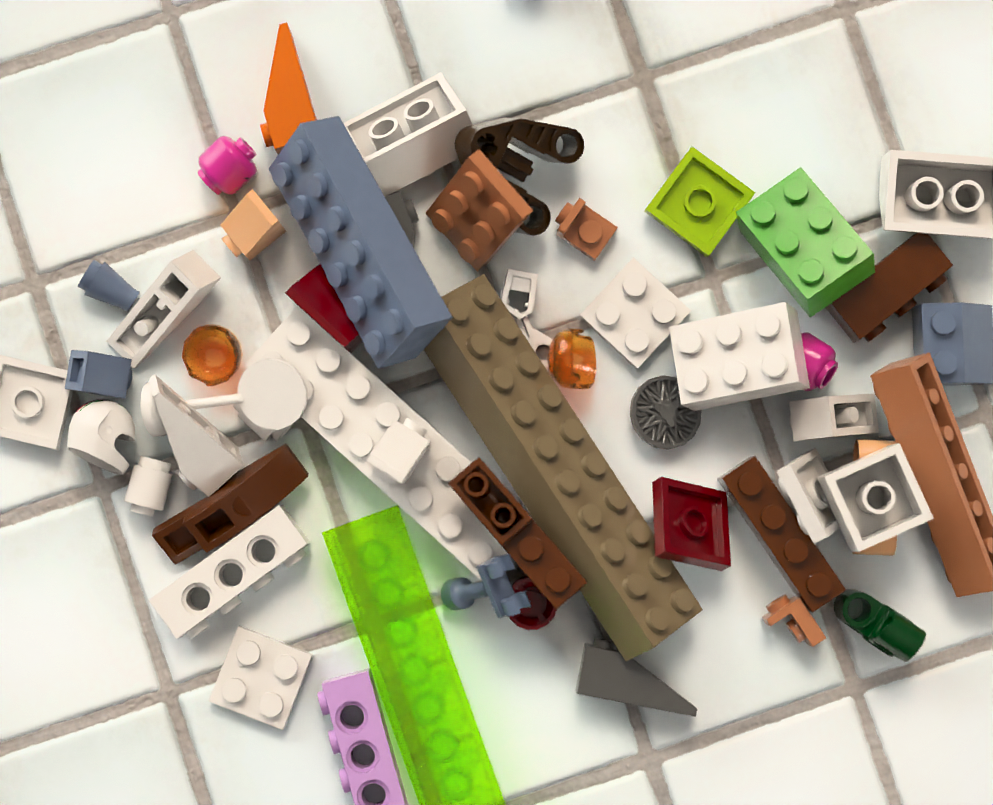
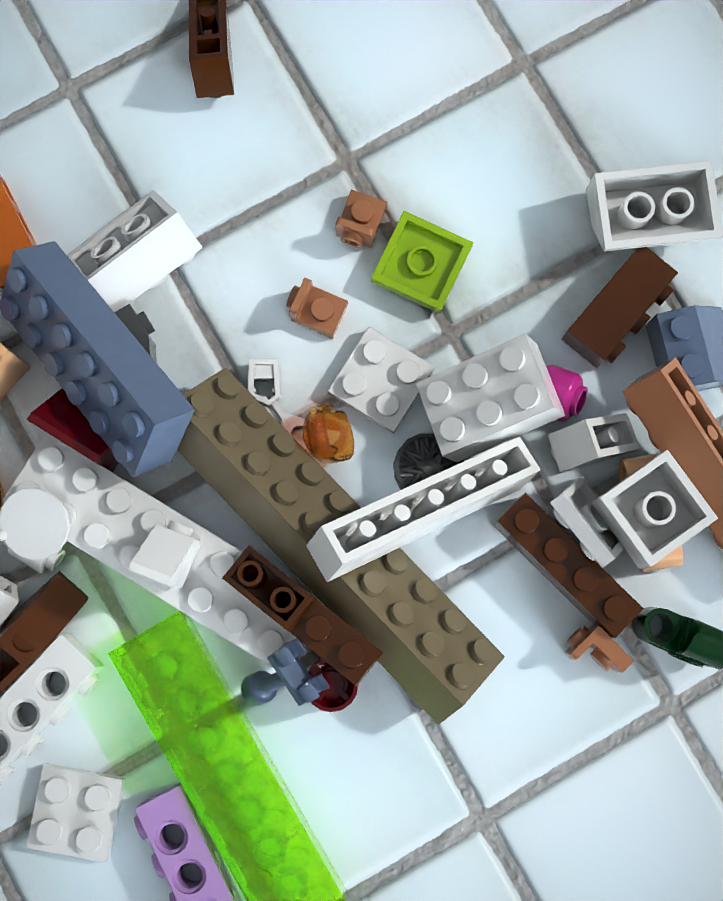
camera: 10 degrees left, 5 degrees down
(478, 210) = (207, 305): nougat plate -> none
(531, 138) = (225, 287): dark brown connector -> none
(610, 677) = (426, 744): dark grey slope -> none
(646, 145) = (360, 219): none -> nougat bracket
(653, 453) = (421, 508): none -> white brick
(691, 524) = (475, 573): dark red plate -> none
(806, 242) = (532, 277): brick -> none

